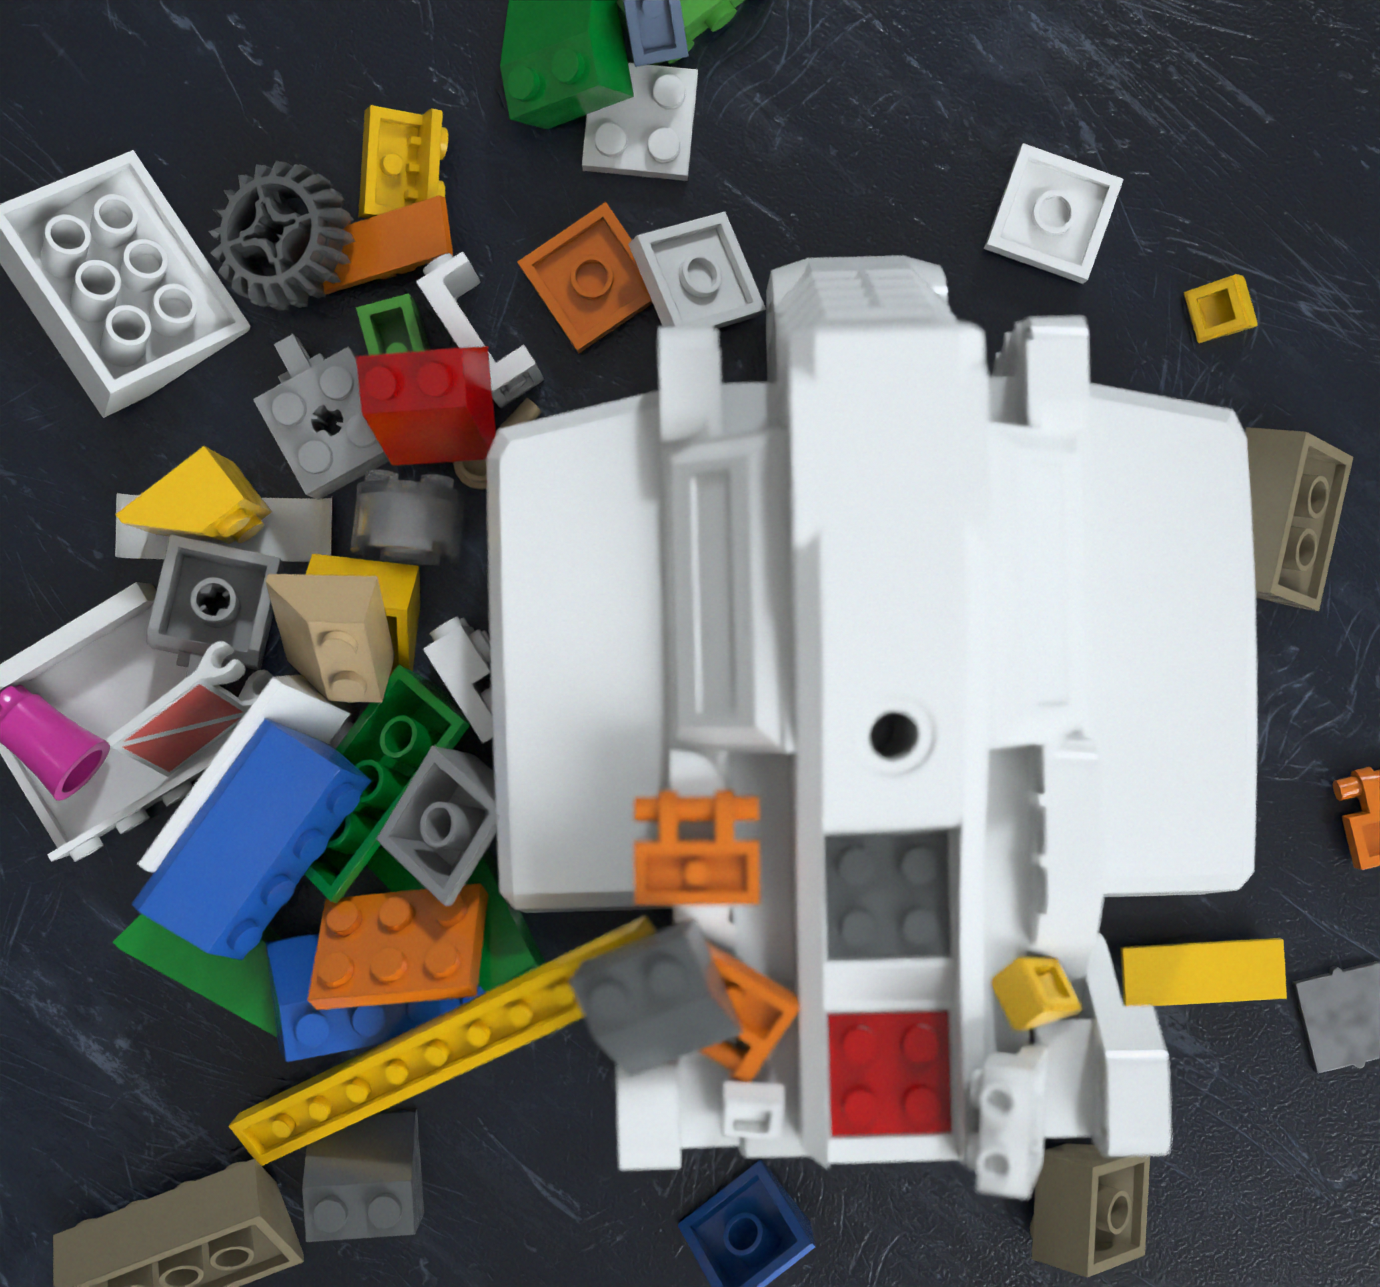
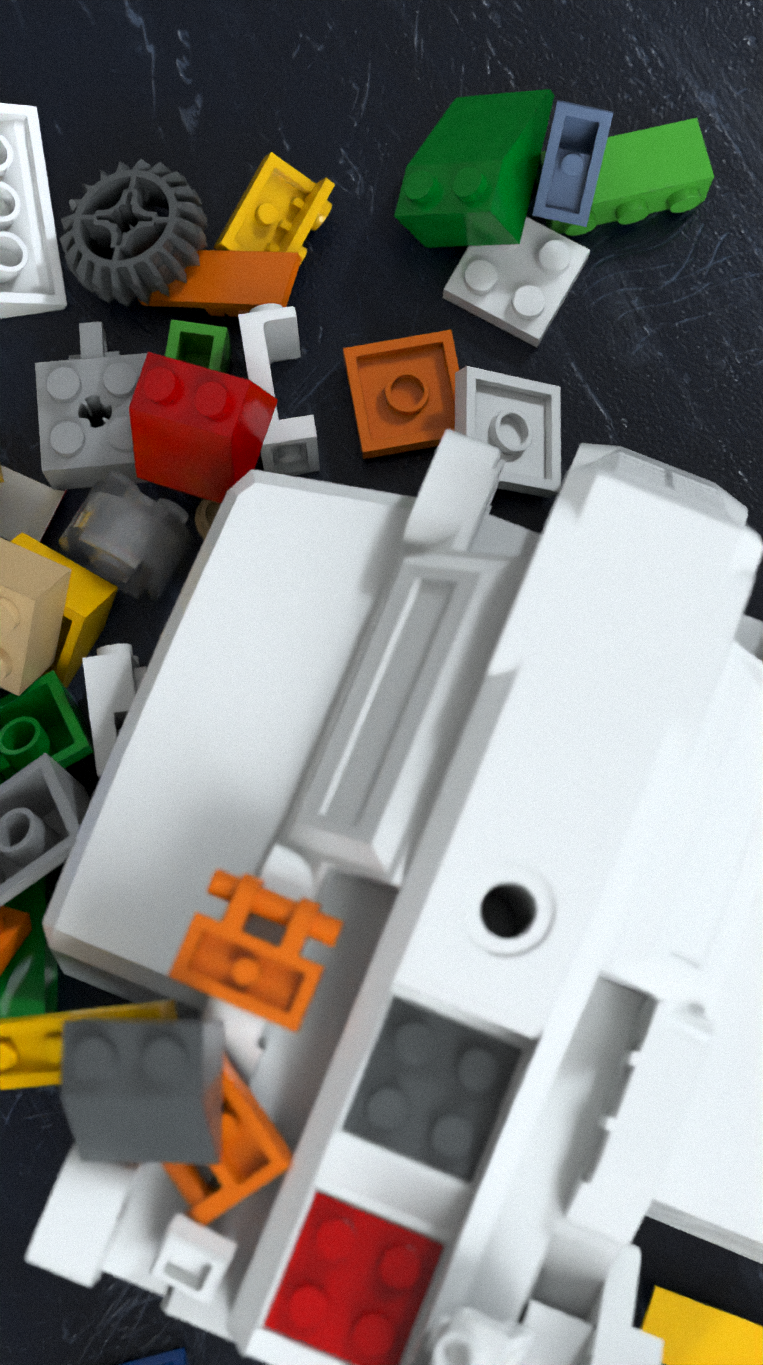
camera: 20 degrees right, 10 degrees down
(1034, 992) = (543, 1267): yellow slope -> none

